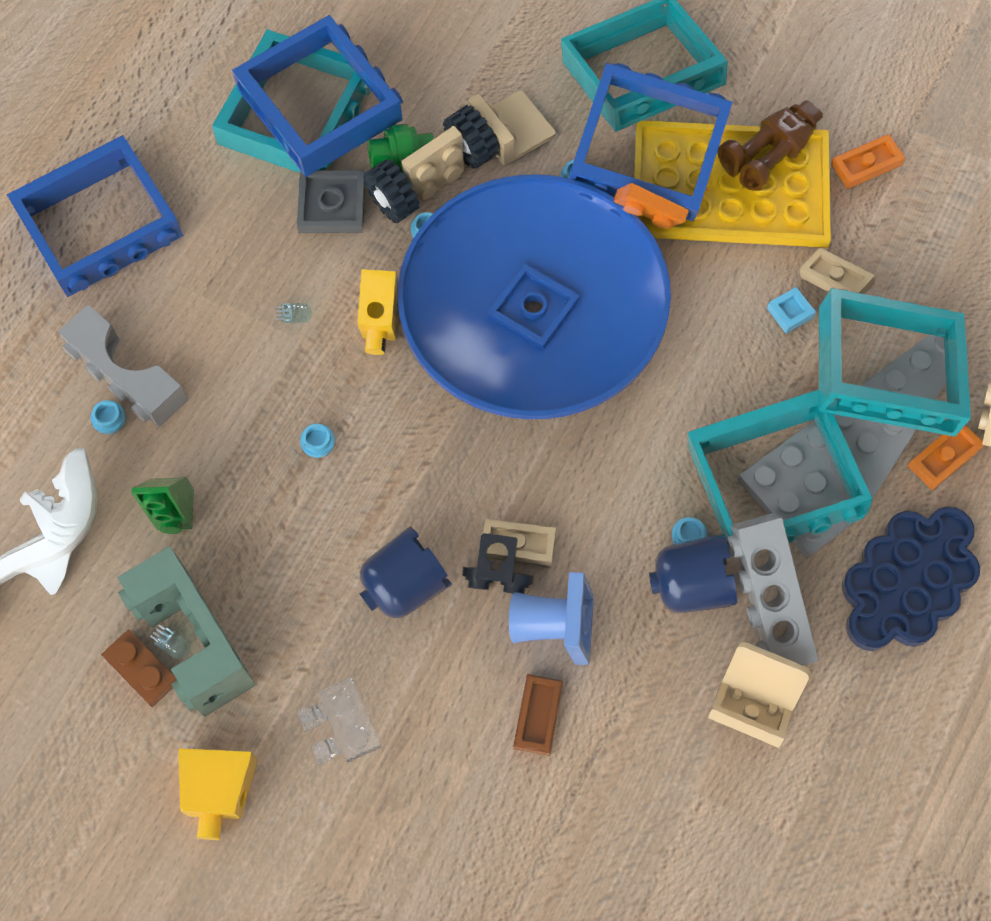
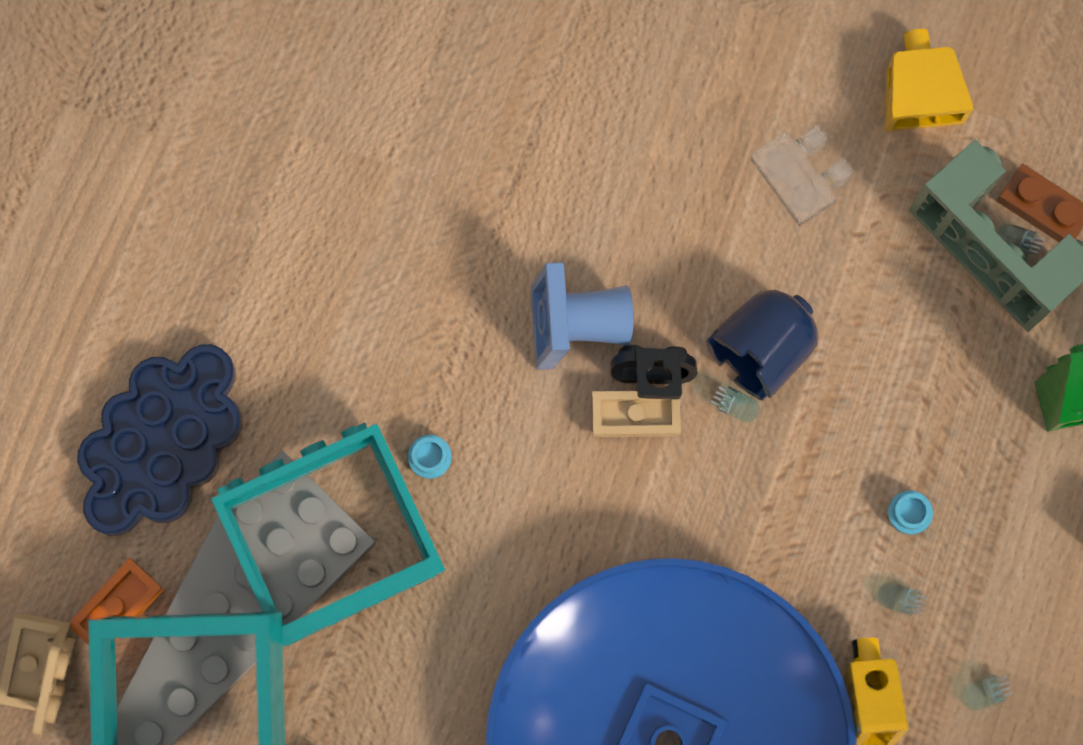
camera: 170 degrees right, 10 degrees up
(340, 383) = (900, 598): none -> clear light blue piece
(435, 540) = (737, 404): none -> clear light blue piece
(538, 715) = (581, 220): dark orange tile -> none
(694, 575) = (419, 392): dark blue cylinder -> none
(759, 693) = (335, 261): tan bracket -> none
(788, 606) = (326, 376): light grey brick -> none

